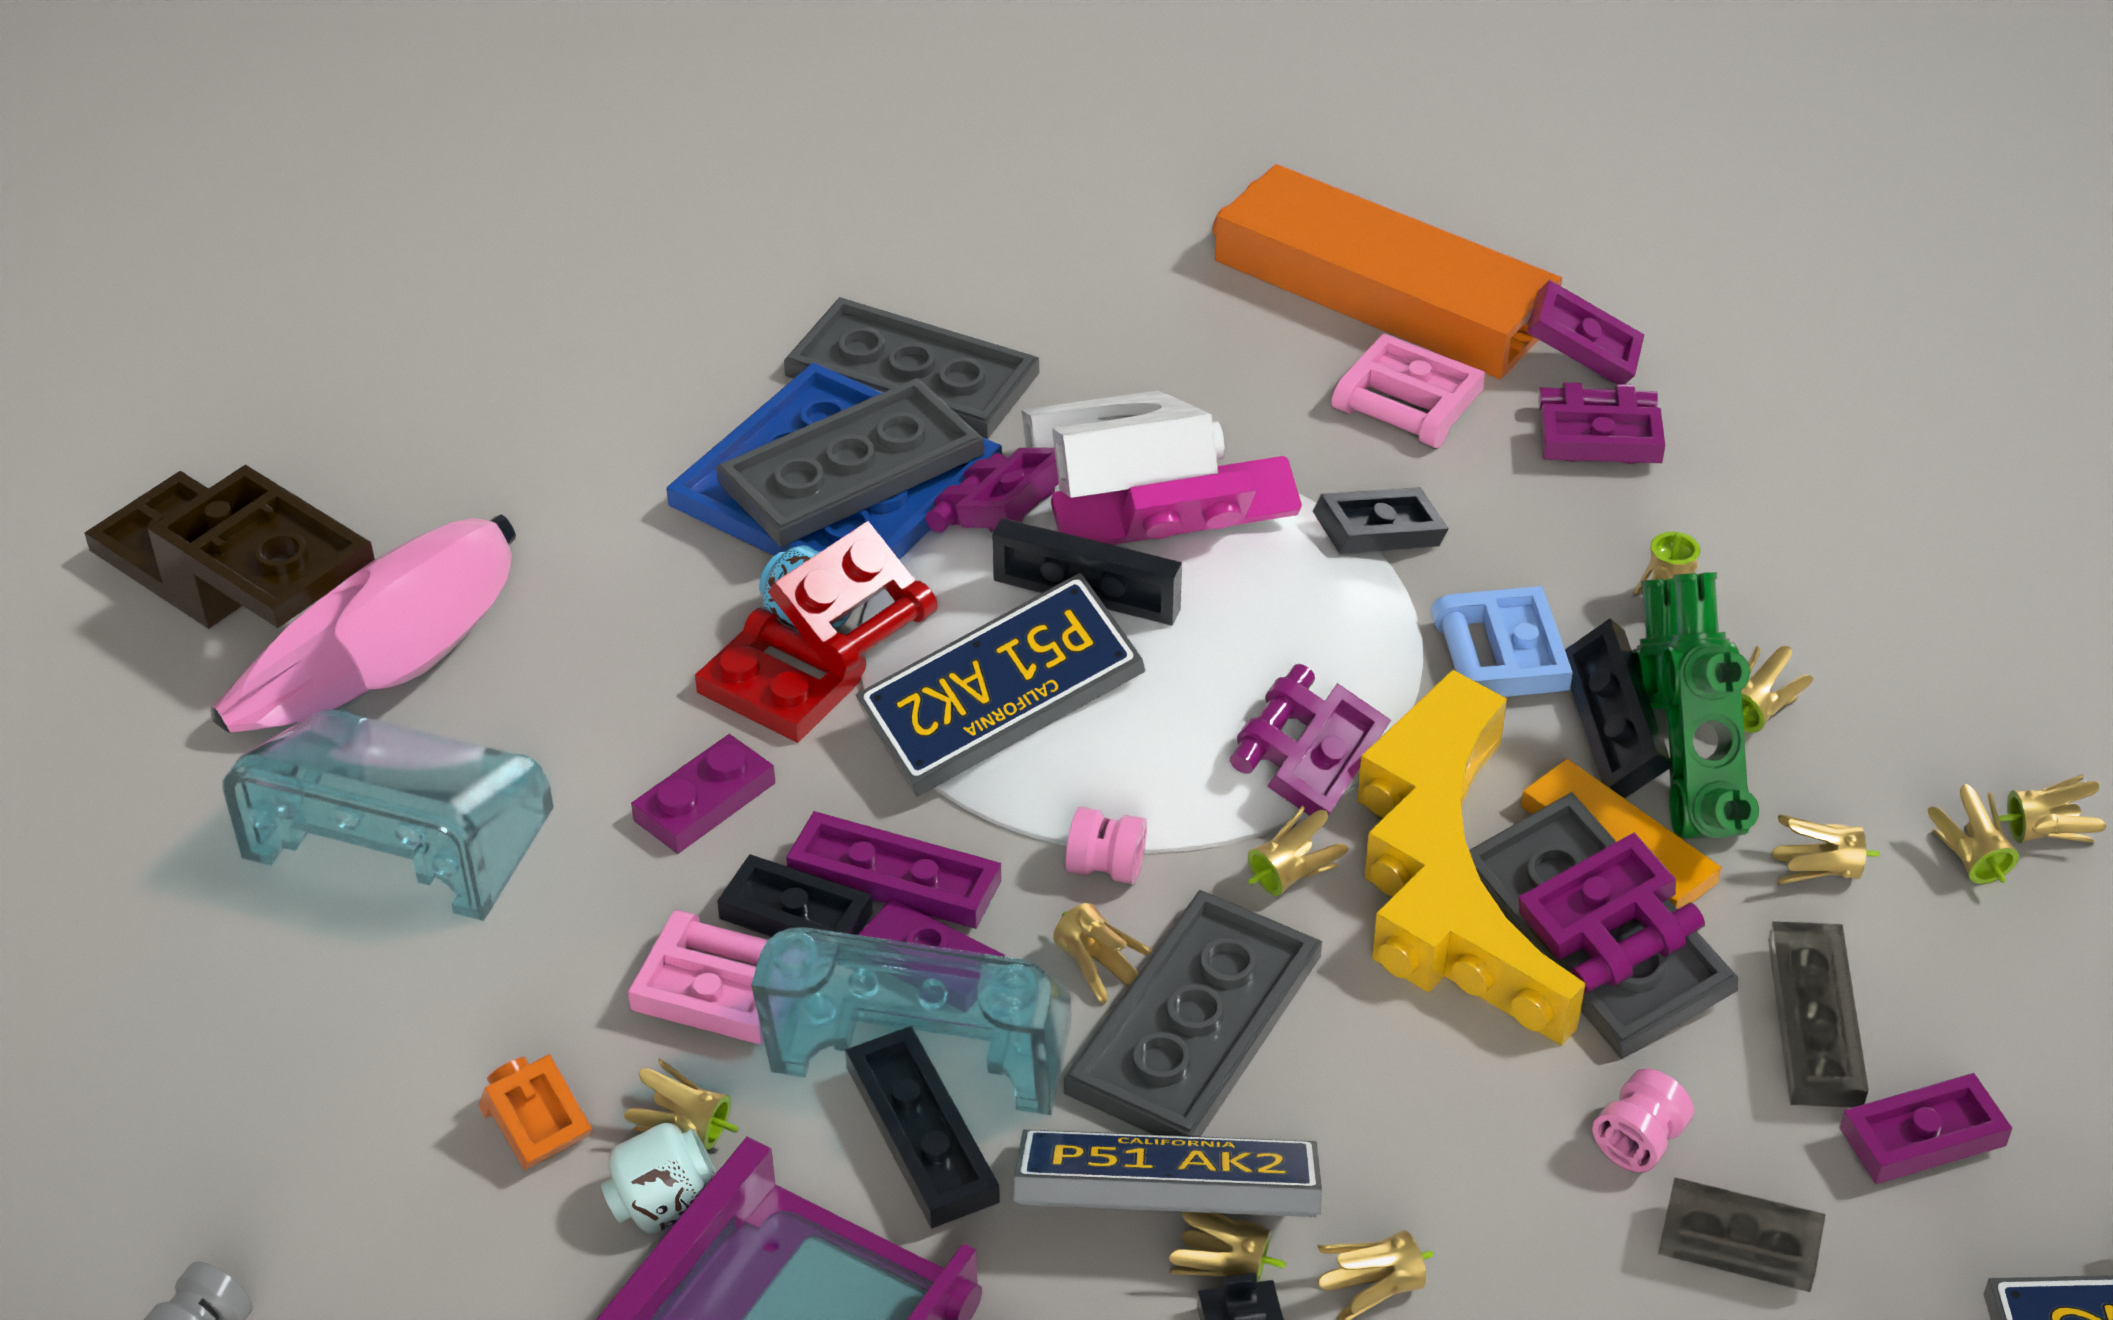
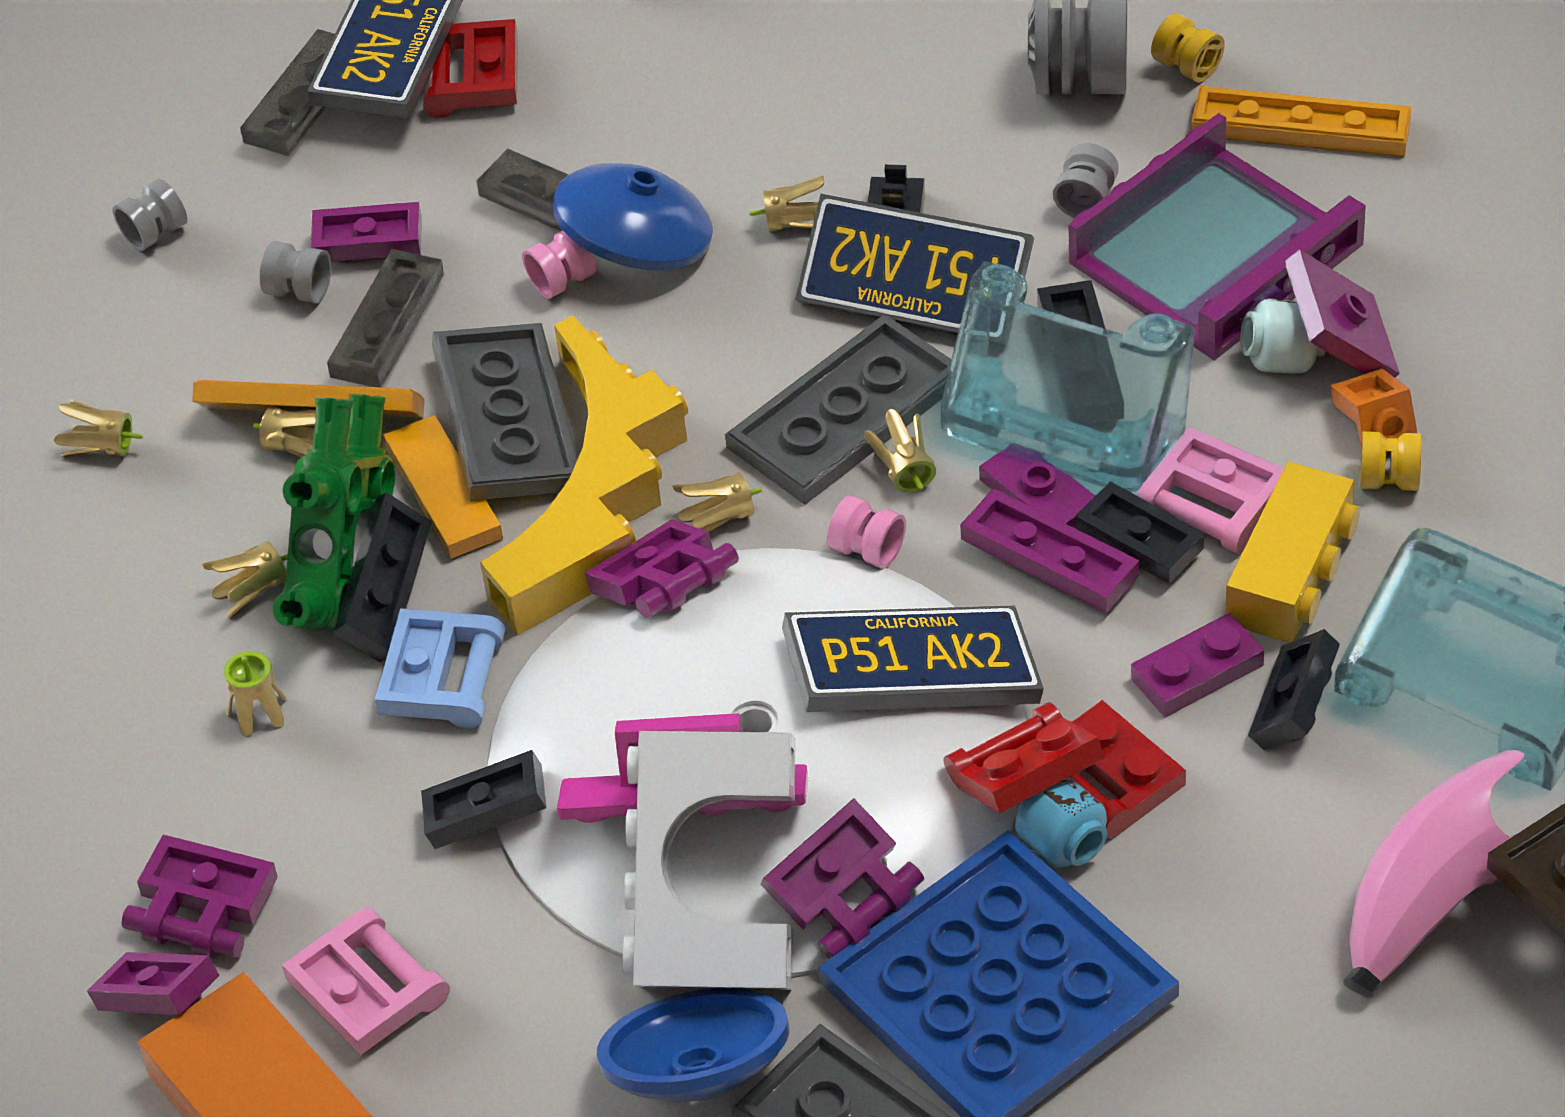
camera: 160 degrees left, 5 degrees up
(503, 1036) = (1404, 461): none -> yellow wheel
(582, 1190) = (1340, 315): none -> magenta plate
(591, 761) = (1294, 690): none -> black plate
(611, 905) = (1292, 552): none -> yellow brick
(689, 1104) = (1247, 385): pearl gold piece -> none
(849, 461) = (981, 960): dark grey tile -> none
(1087, 328) = (693, 1044): none -> blue dish
(1119, 576) = (814, 720): black plate -> none
(1590, 1234) = (632, 216): none -> blue dish
(1601, 895) = (504, 374): magenta plate -> none
(1834, 882) = (298, 396): none -> light orange tile
(1971, 1044) = (296, 272): none -> light grey wheel
(1987, 851) = (170, 410): pearl gold piece -> none

